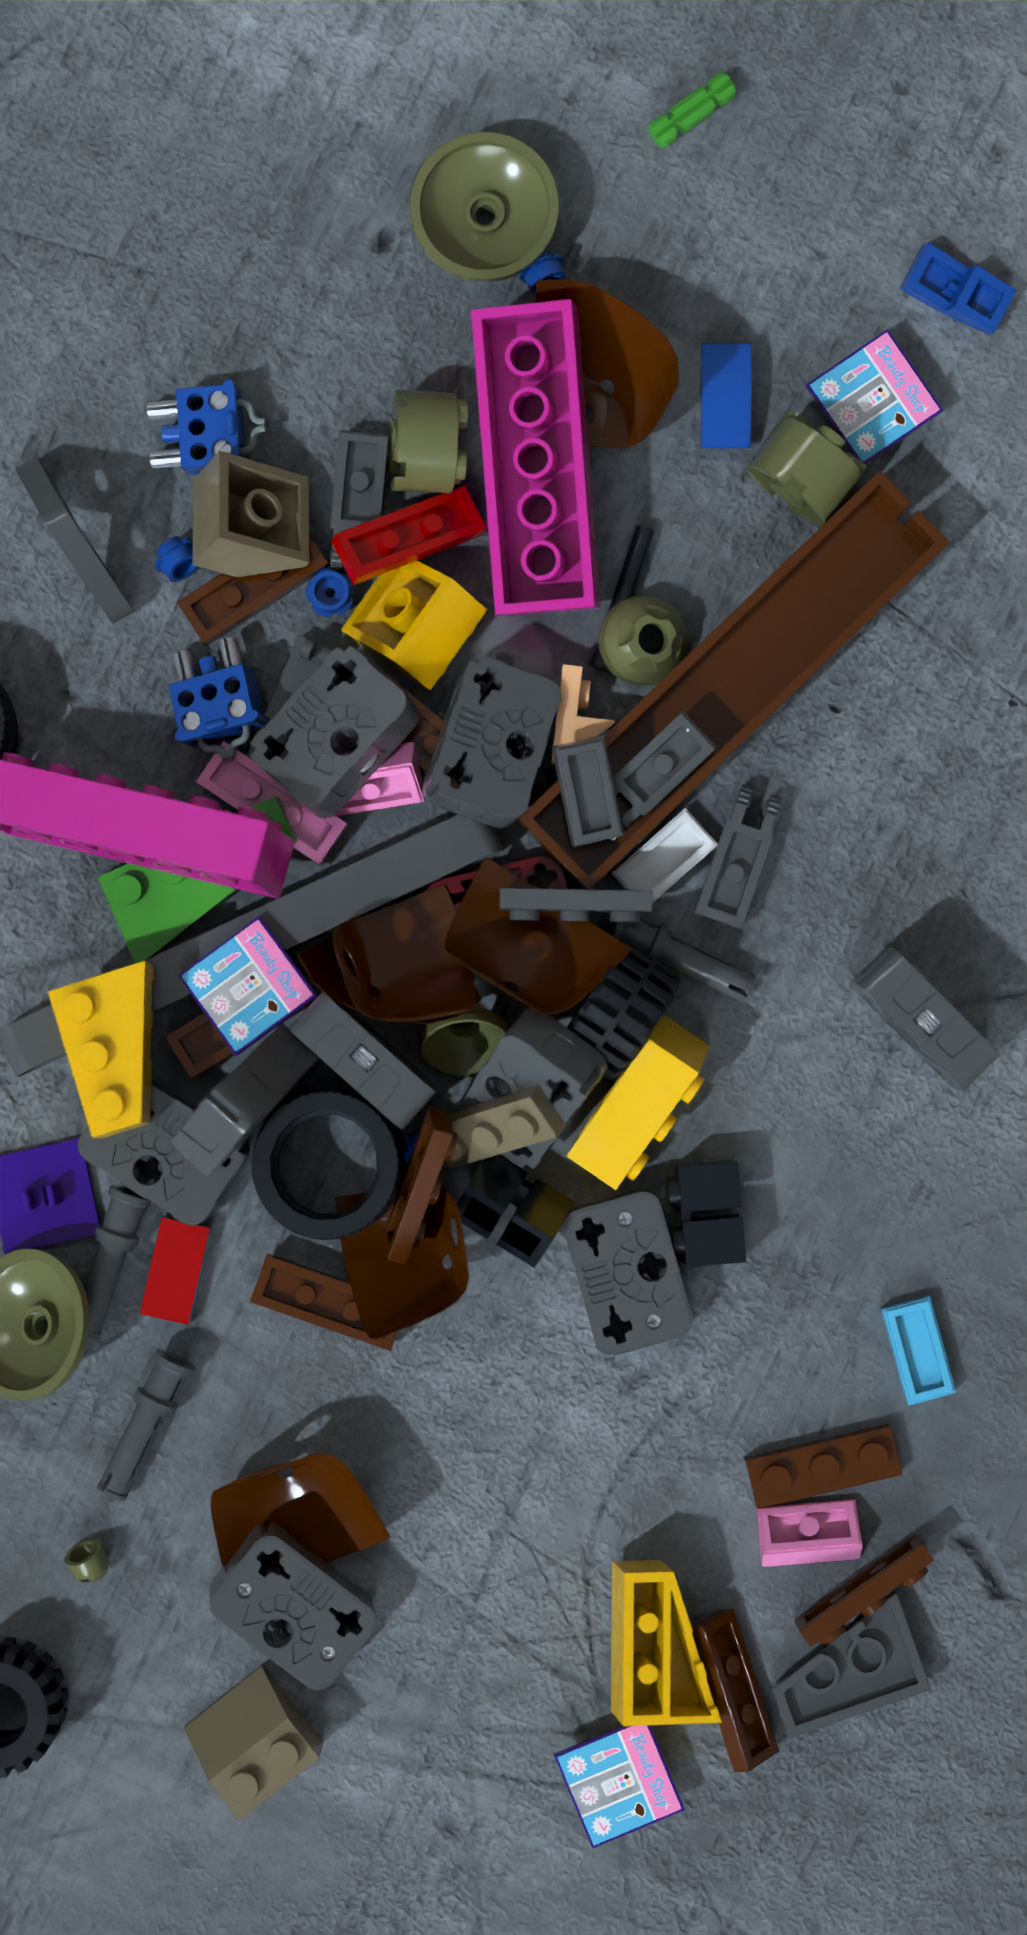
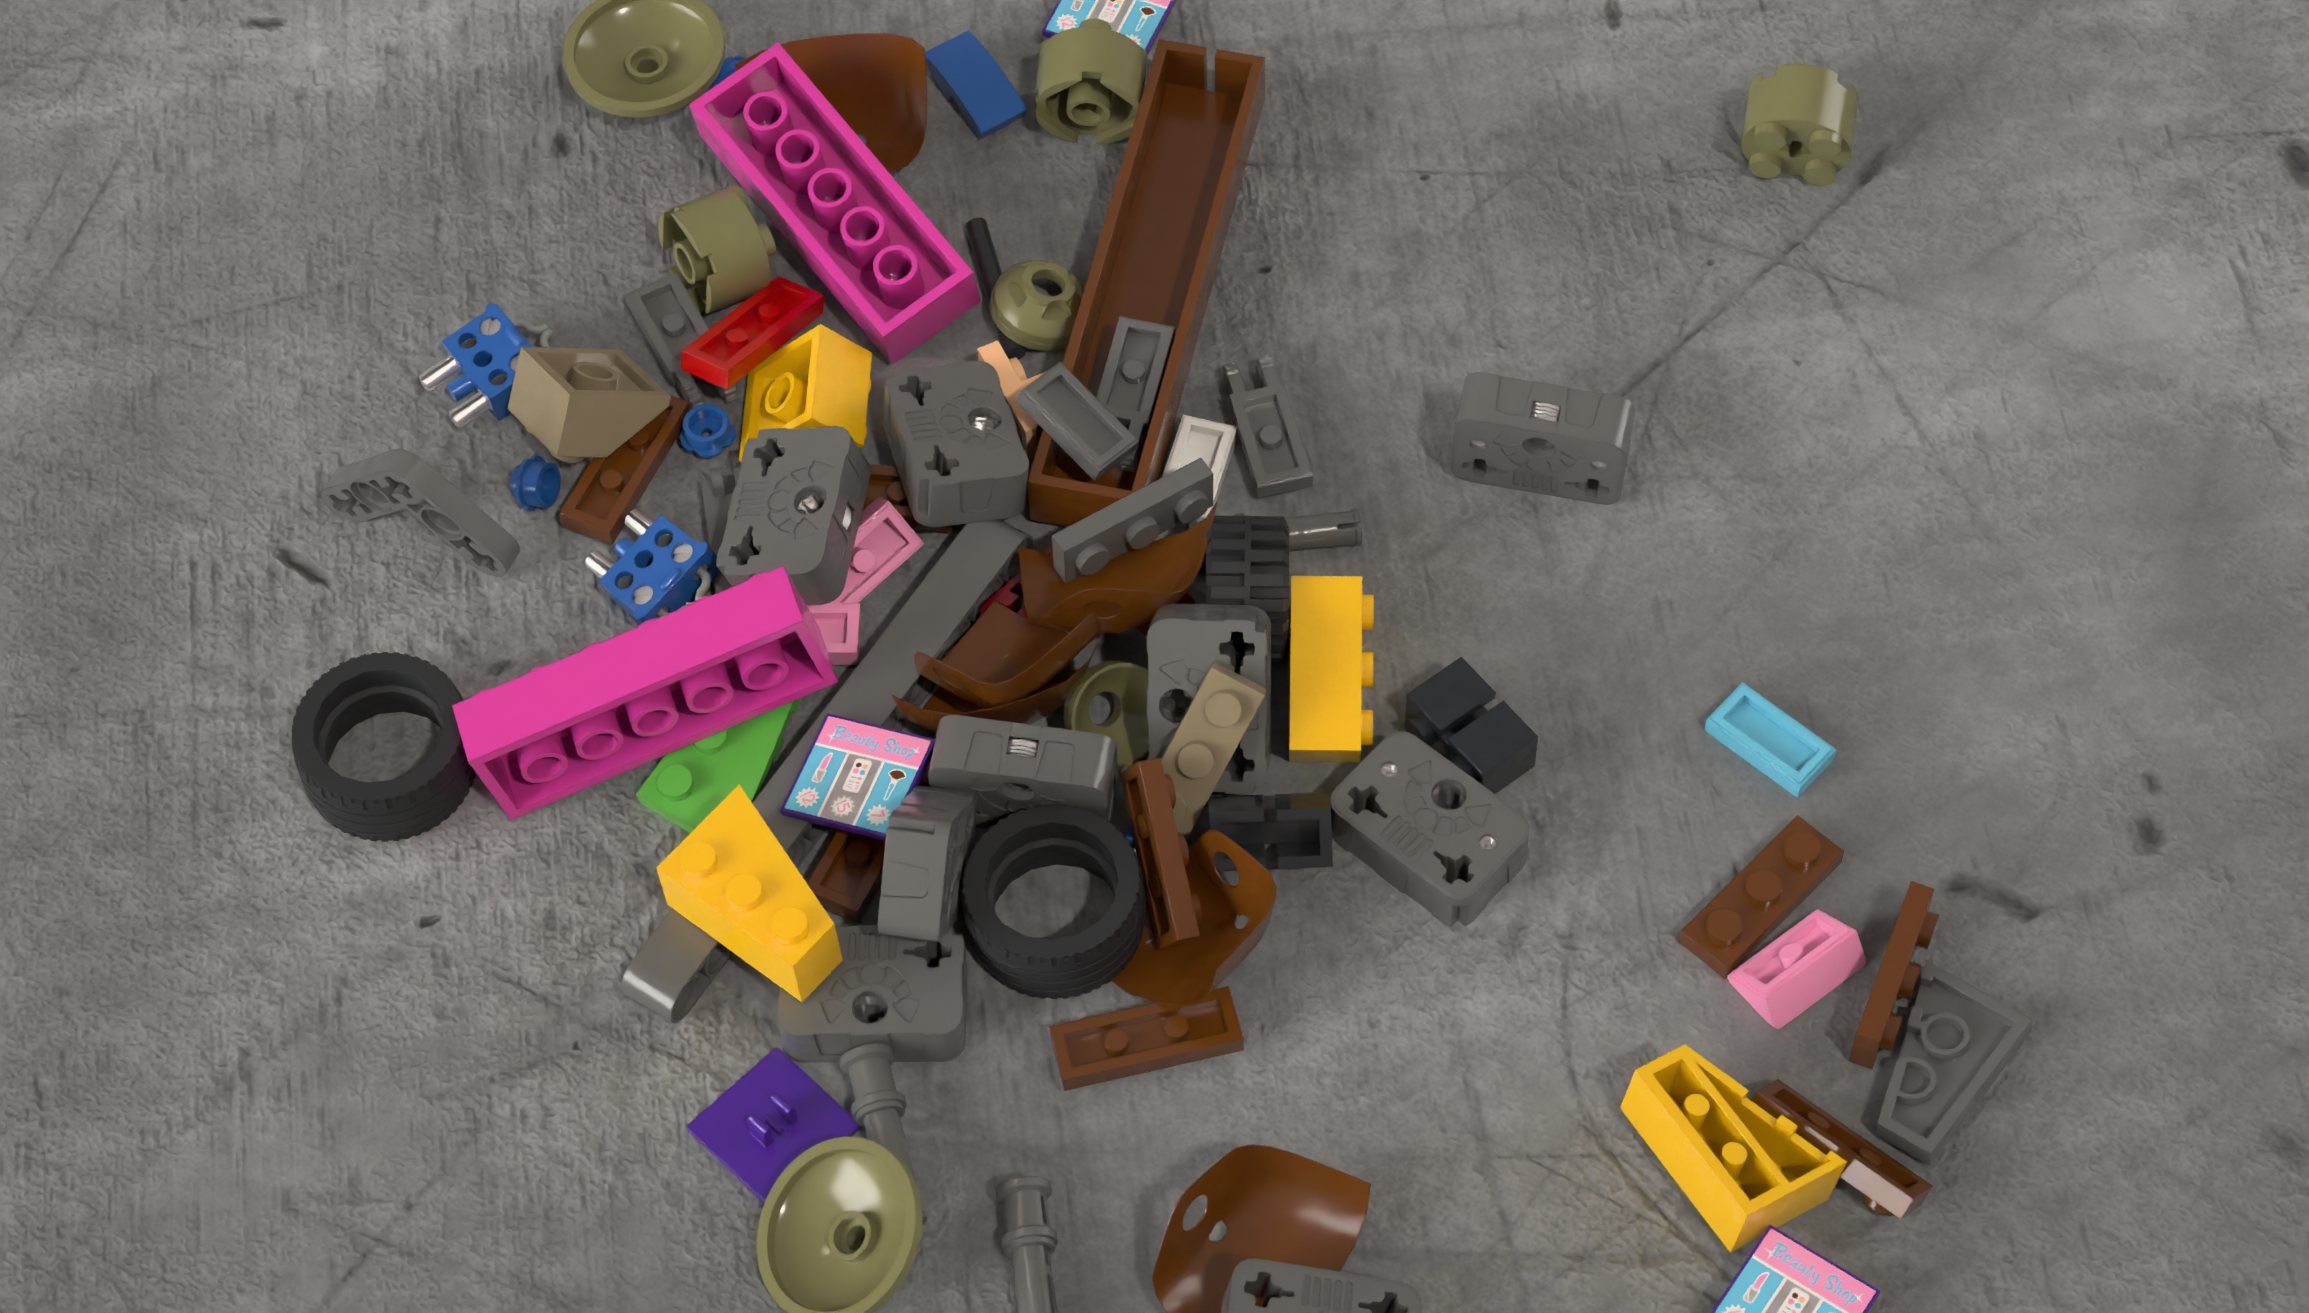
camera: 30 degrees left, 30 degrees down
(175, 1270) = (964, 1109): red tile -> none

